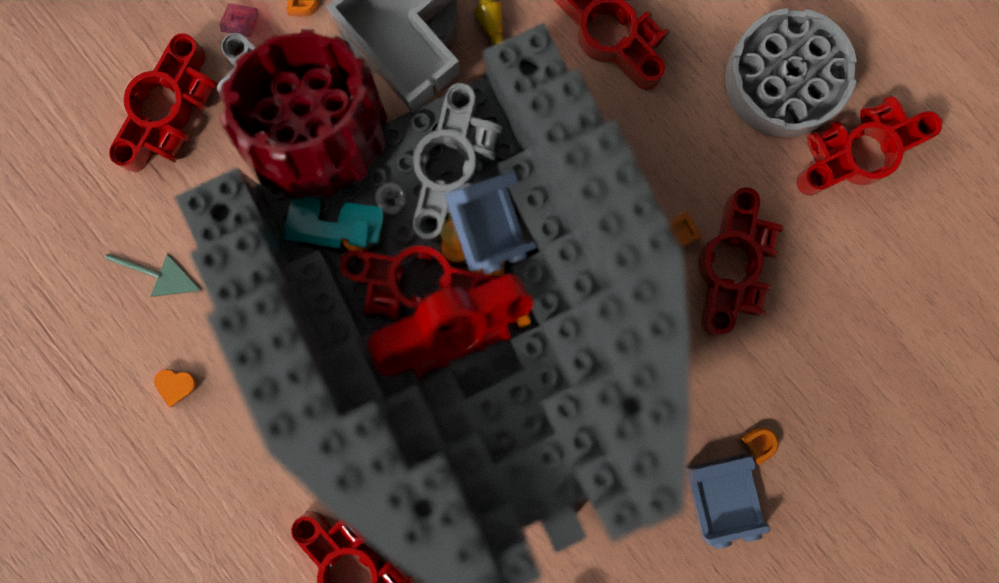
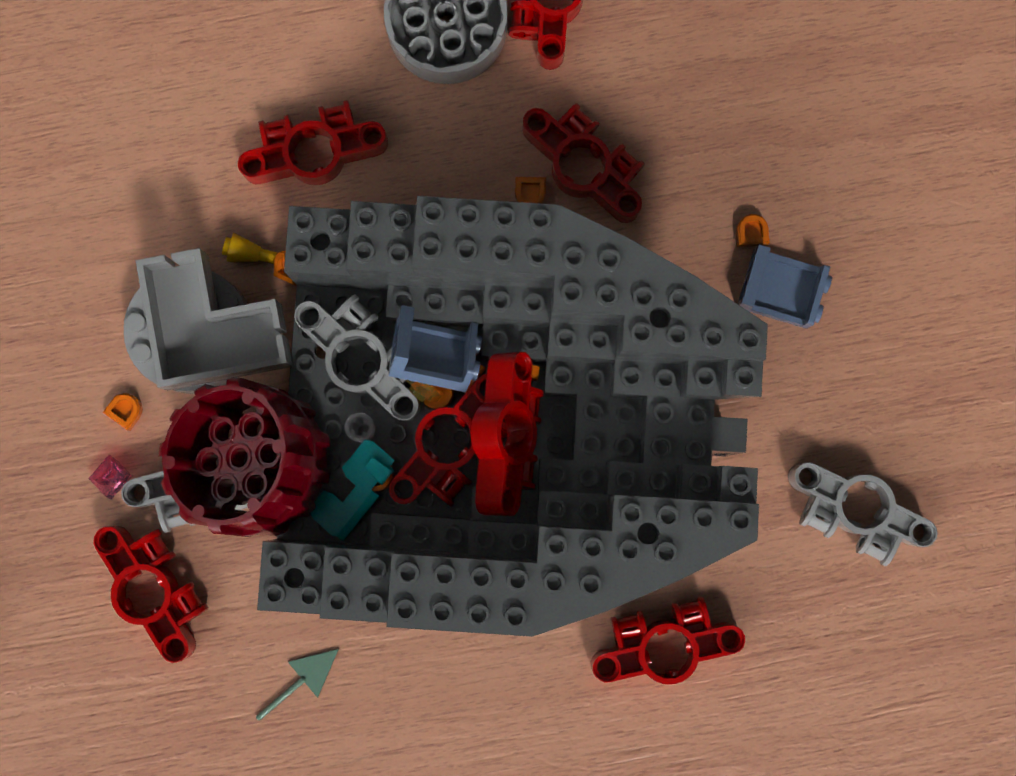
camera: 60 degrees left, 0 degrees up
(174, 385) = (412, 719): orange tile -> none

